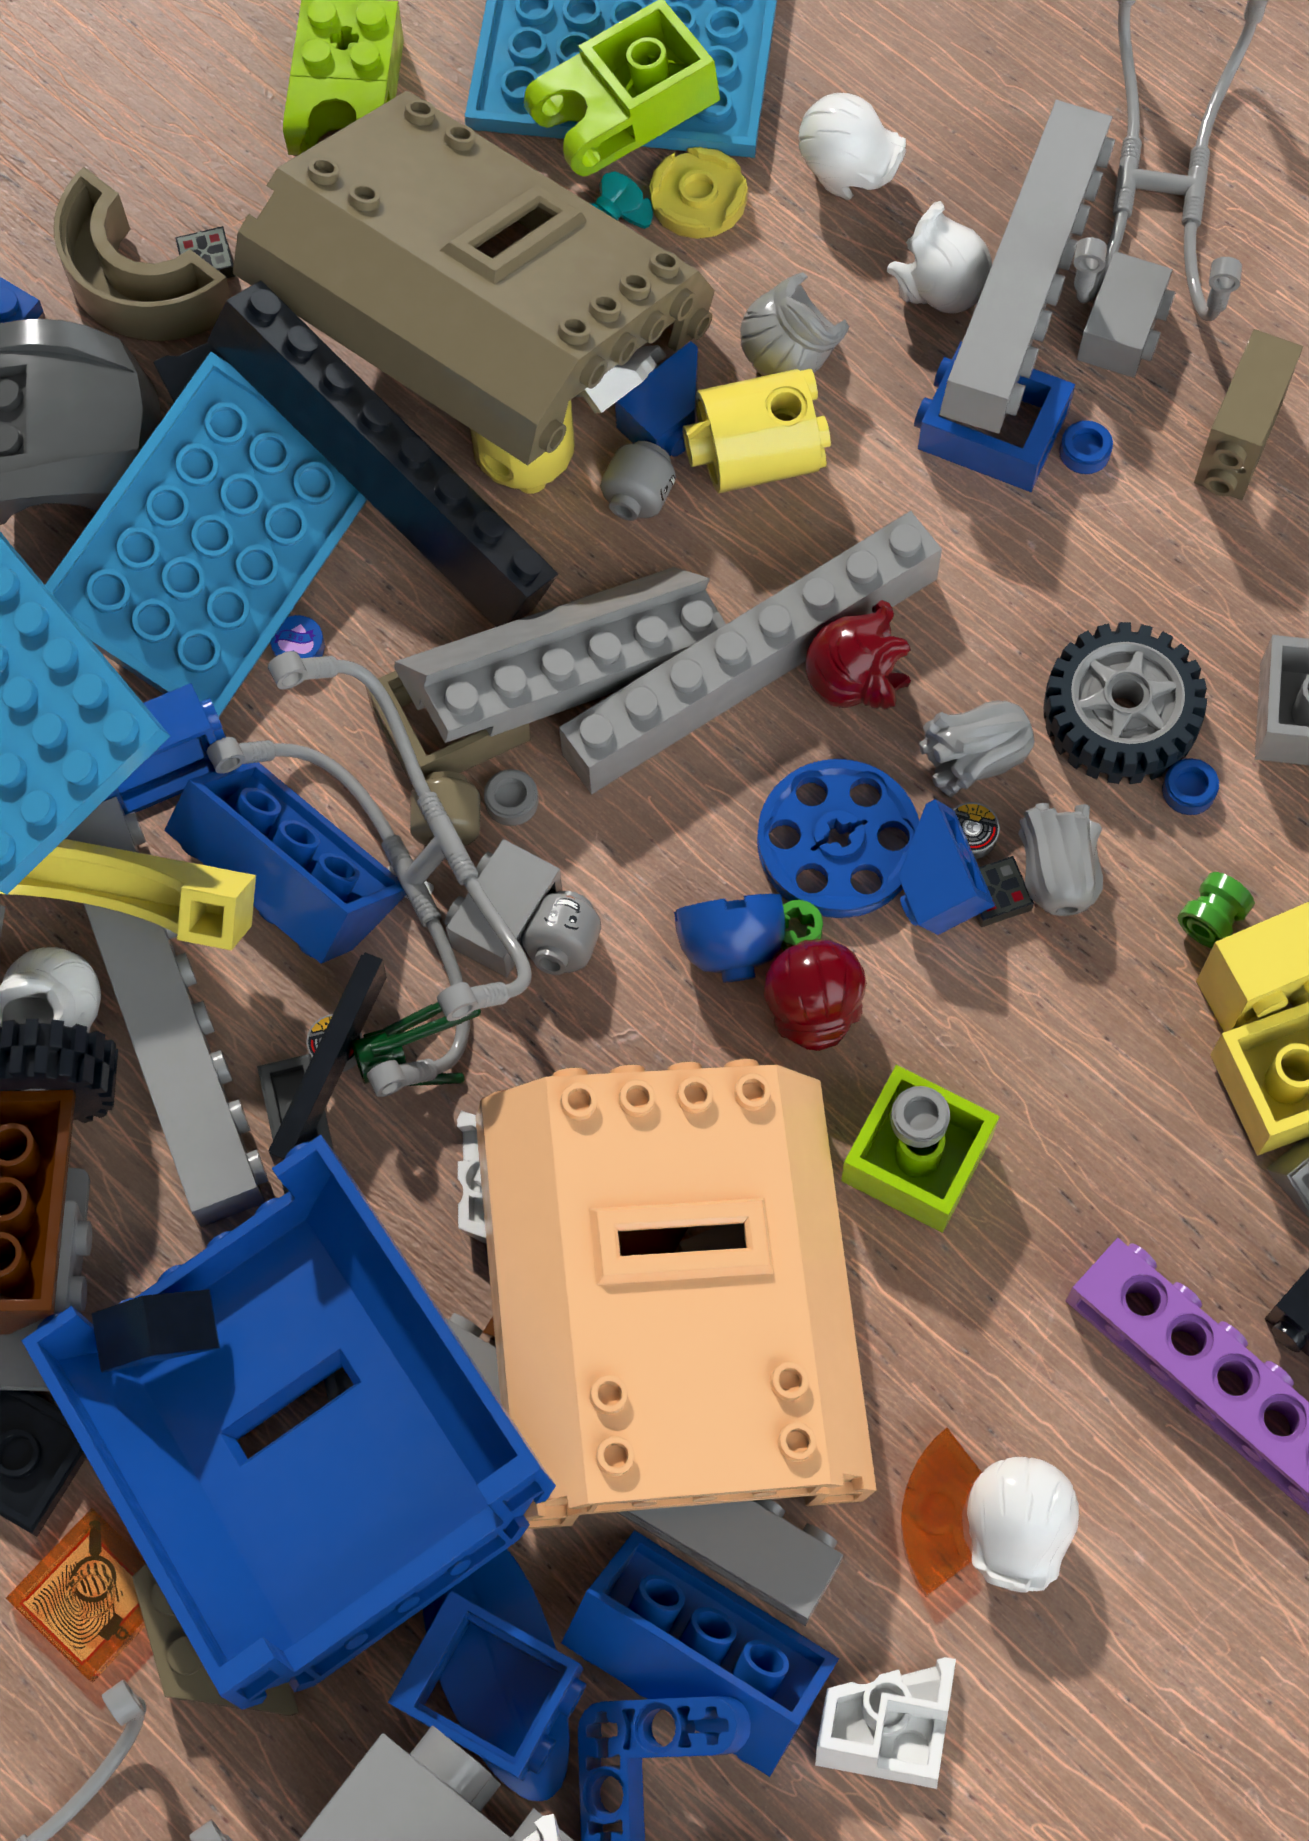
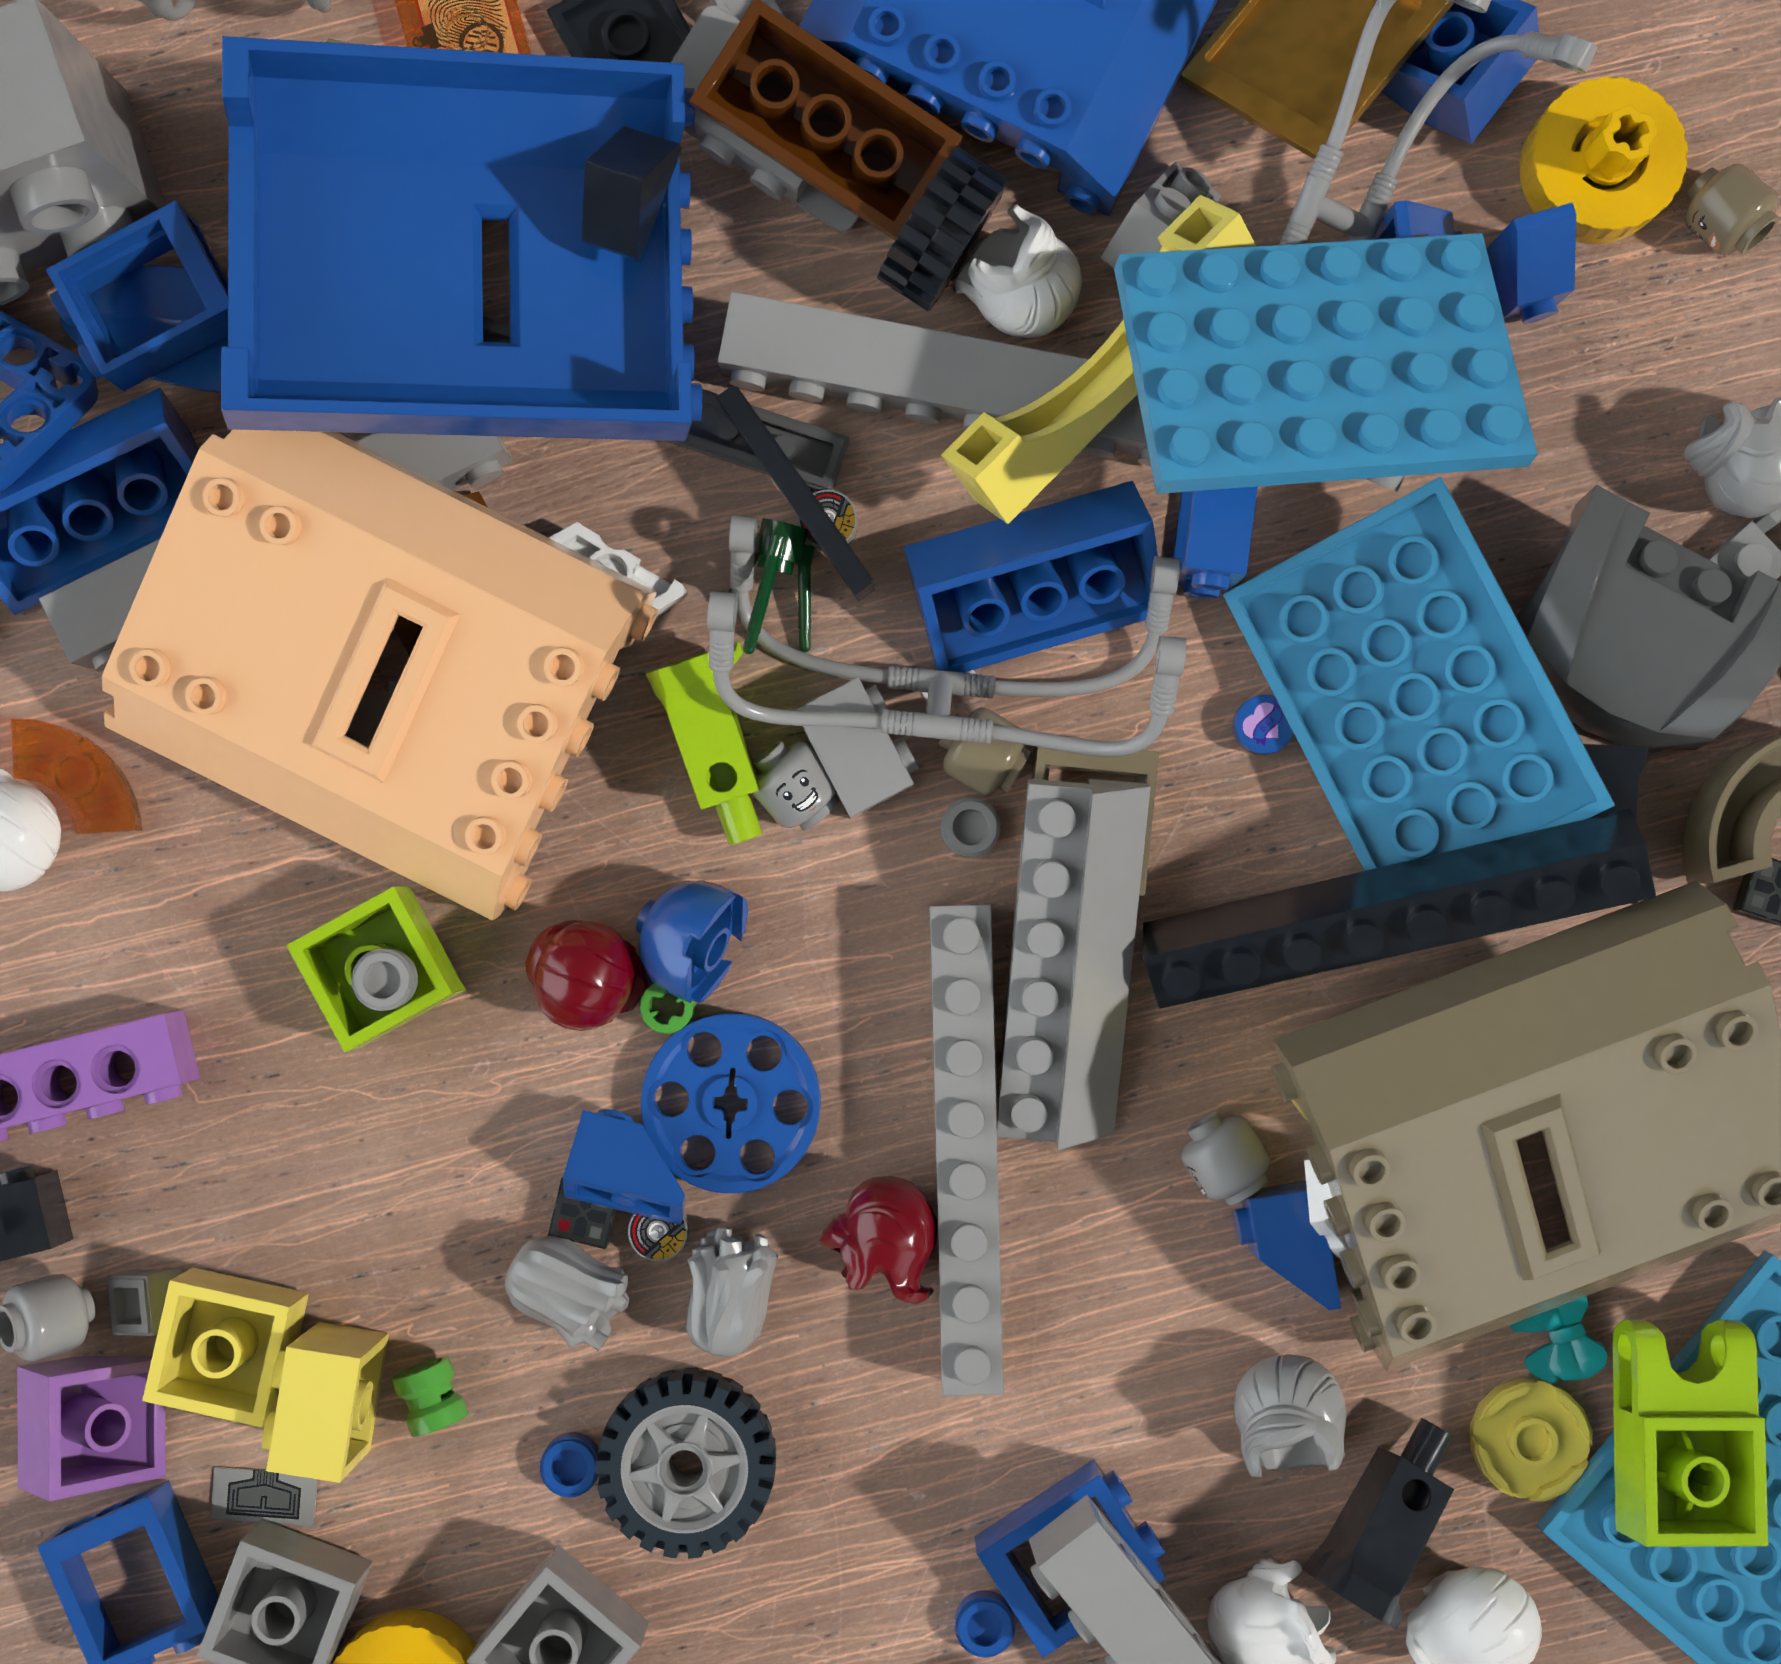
camera: 125 degrees right, 20 degrees up
(560, 1012) = (710, 742): none -> lime piece
(758, 430) = (1199, 1285): light yellow cylinder -> none
(822, 234) = (1385, 1525): none -> black piece

